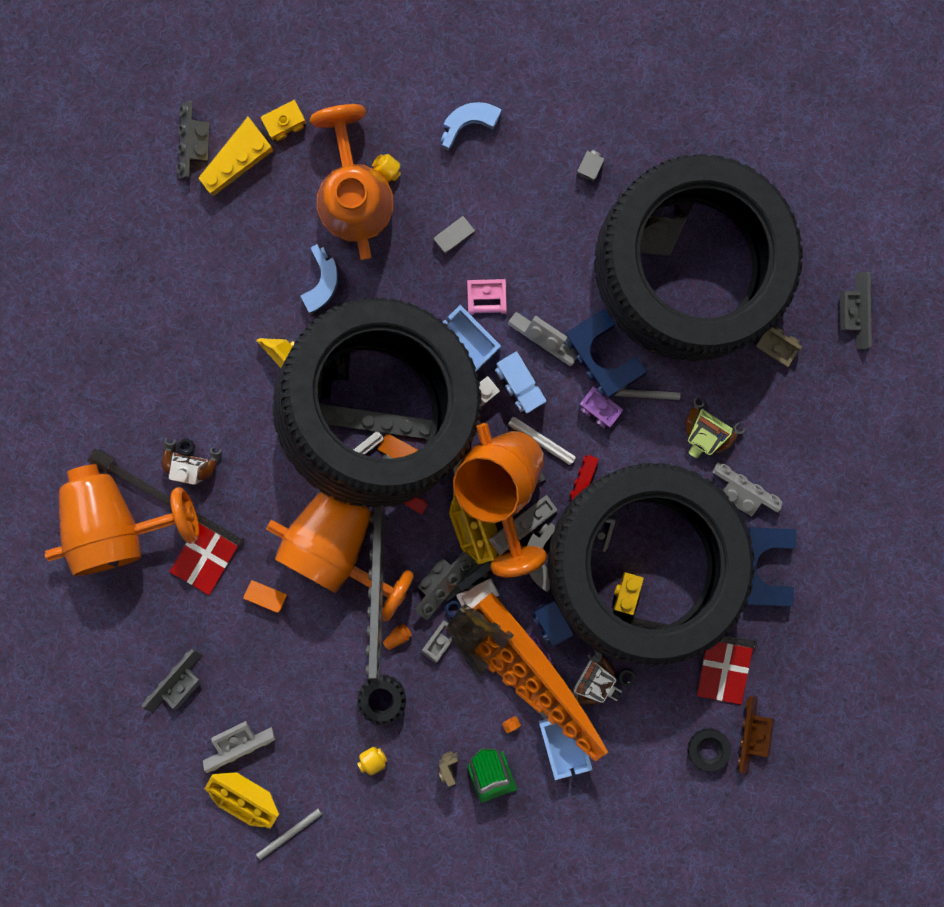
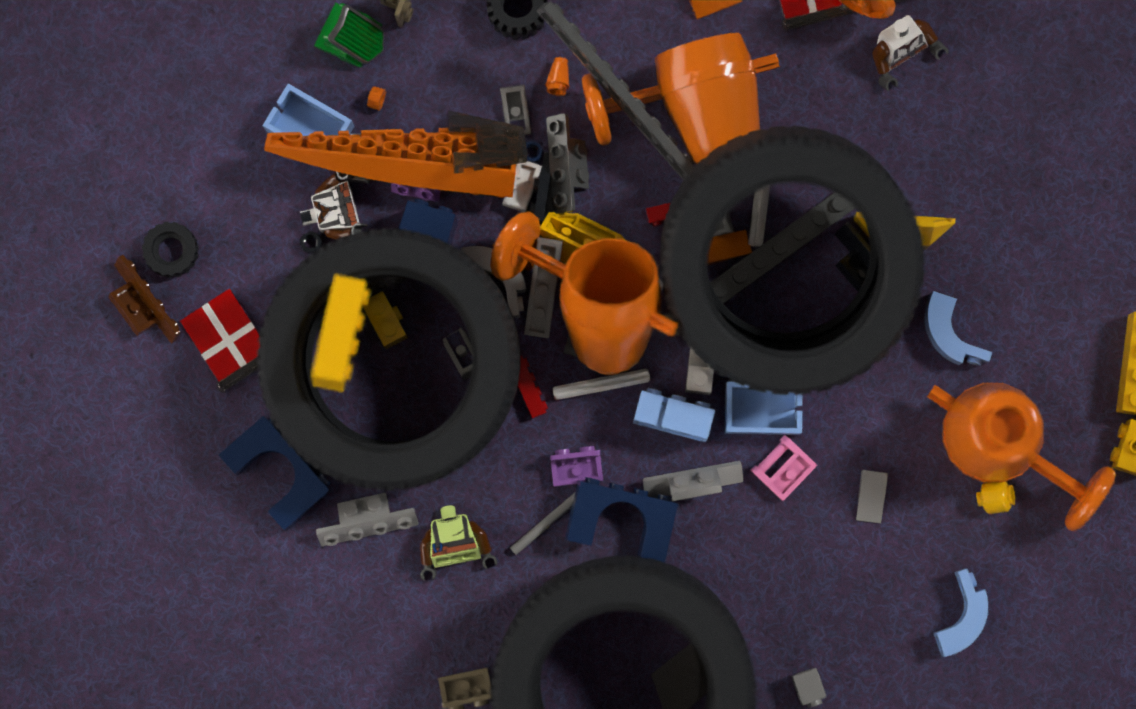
camera: 135 degrees right, 5 degrees down
(179, 446) = (925, 55): black axle -> none
(670, 602) = (339, 333): none -> yellow wedge

